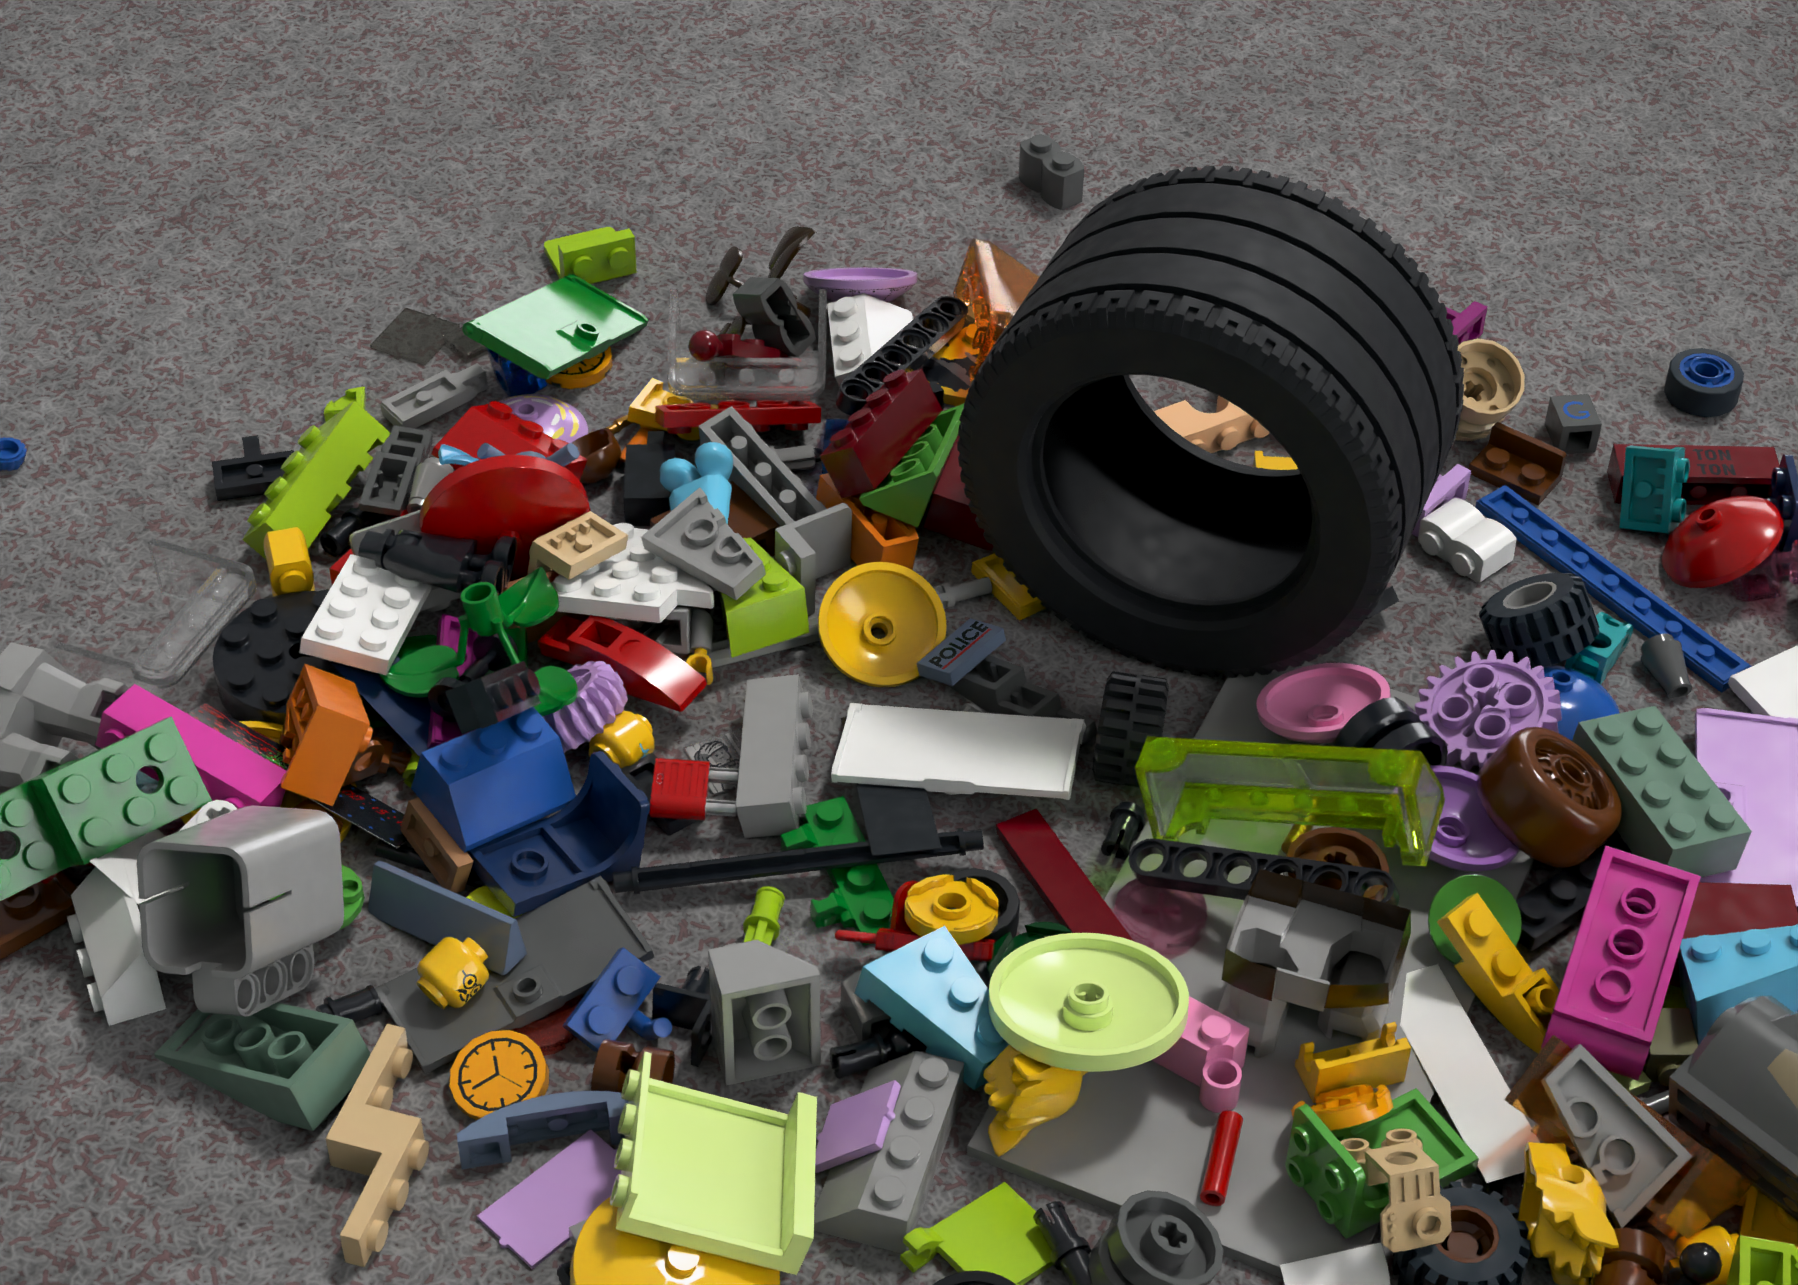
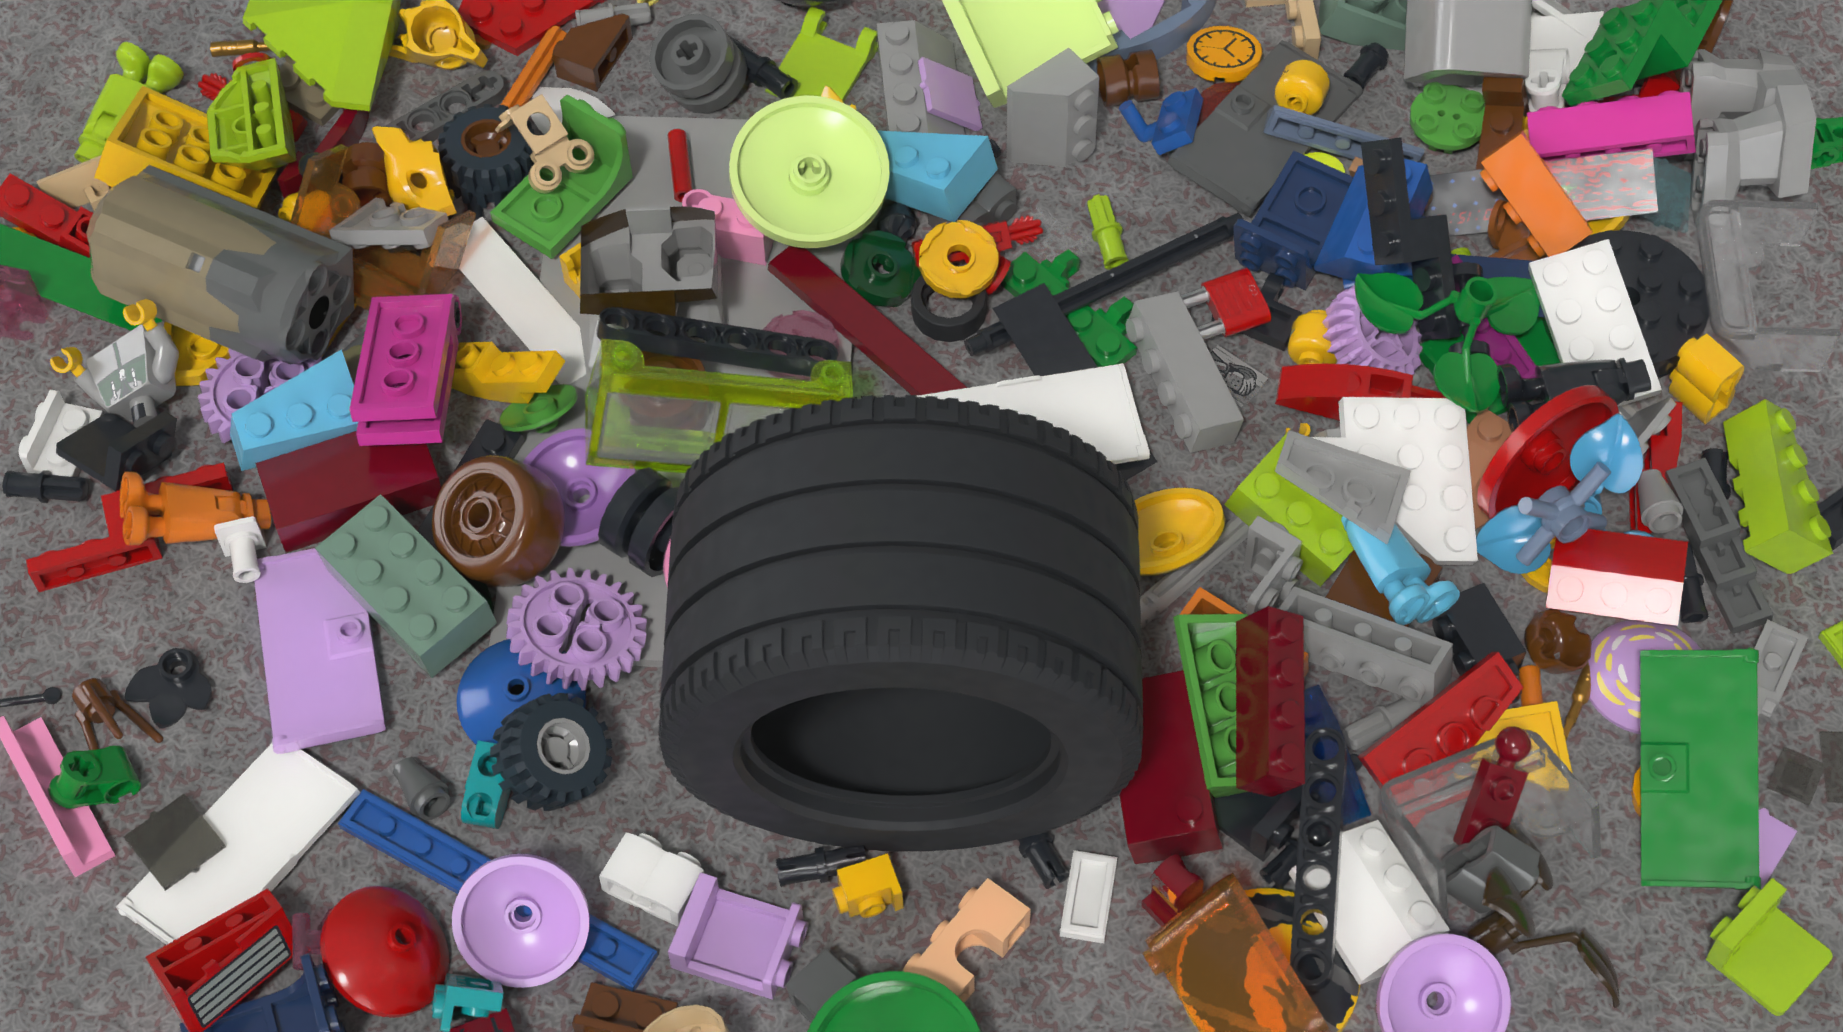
camera: 160 degrees right, 15 degrees up
(577, 546) = (1461, 444): tan bracket -> none
(687, 1009) = (1123, 149): black bracket -> none
(1350, 1105) = (596, 193): light orange tile -> none
(1594, 524) = (515, 947): none -> lavender dish

